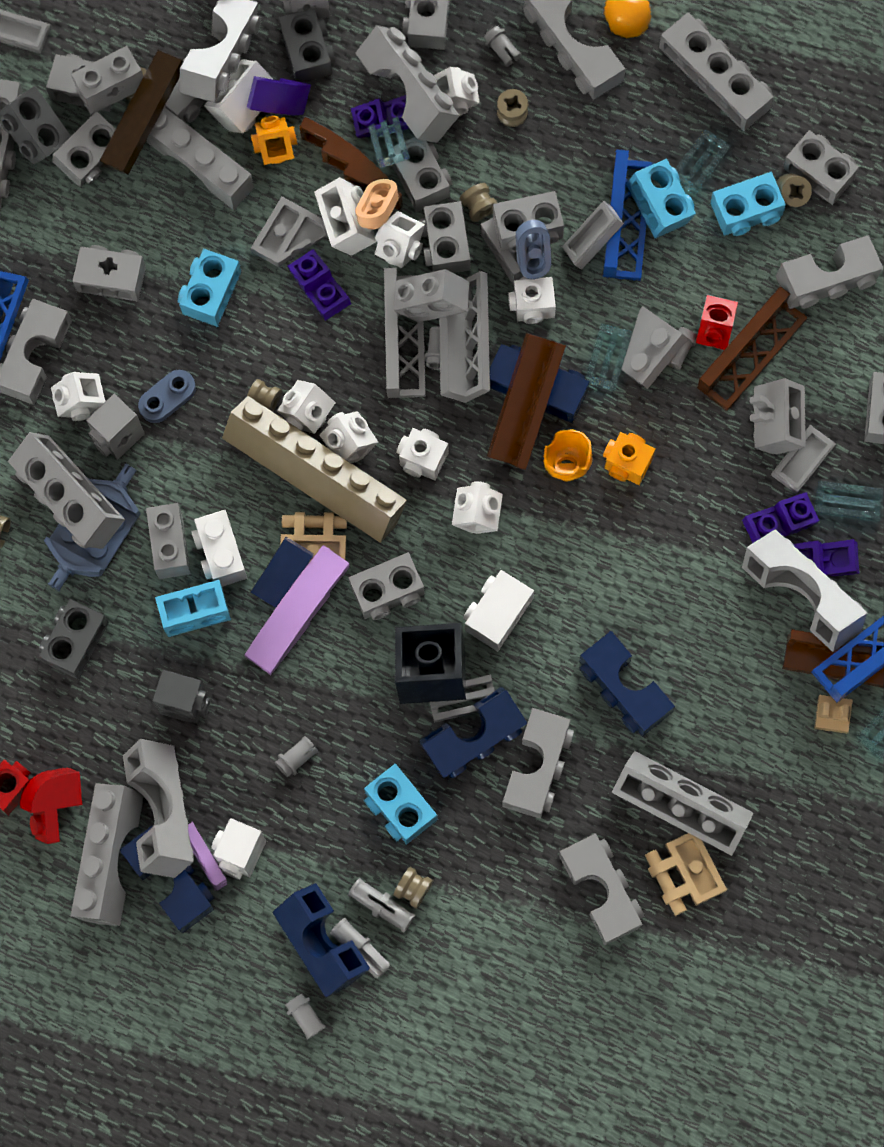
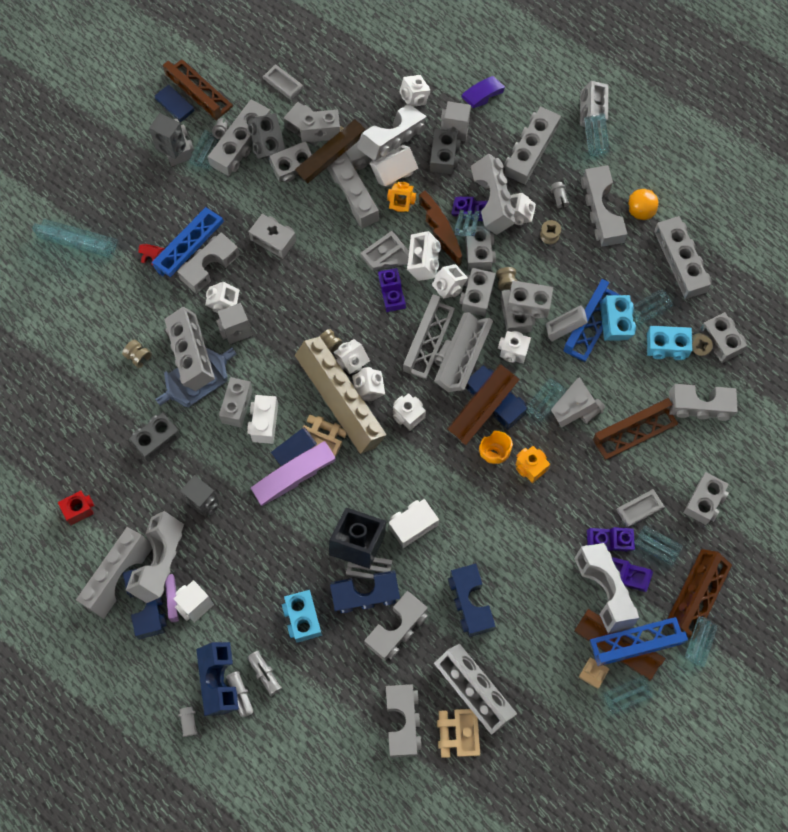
camera: 20 degrees right, 5 degrees down
(45, 795) = (96, 521): red brick -> none
(168, 396) = (274, 319): sand blue plate -> none
(193, 608) = (232, 447): medium azure brick -> none
(216, 289) = (330, 269): medium azure brick -> none
(277, 96) = (414, 173): dark purple slope -> none
(296, 757) = (253, 561): light grey pin -> none
(377, 203) = (443, 254): light nougat plate -> none
(382, 578) = (352, 475): light grey brick -> none
(413, 887) = (287, 670): dark tan wheel -> none
(431, 295) = (453, 320): light grey brick -> none
(477, 508) = (427, 457): white brick -> none
(533, 243) = (525, 314): sand blue plate -> none
(716, 322) = (620, 404): red brick -> none
(779, 416) = (635, 475): light grey brick -> none

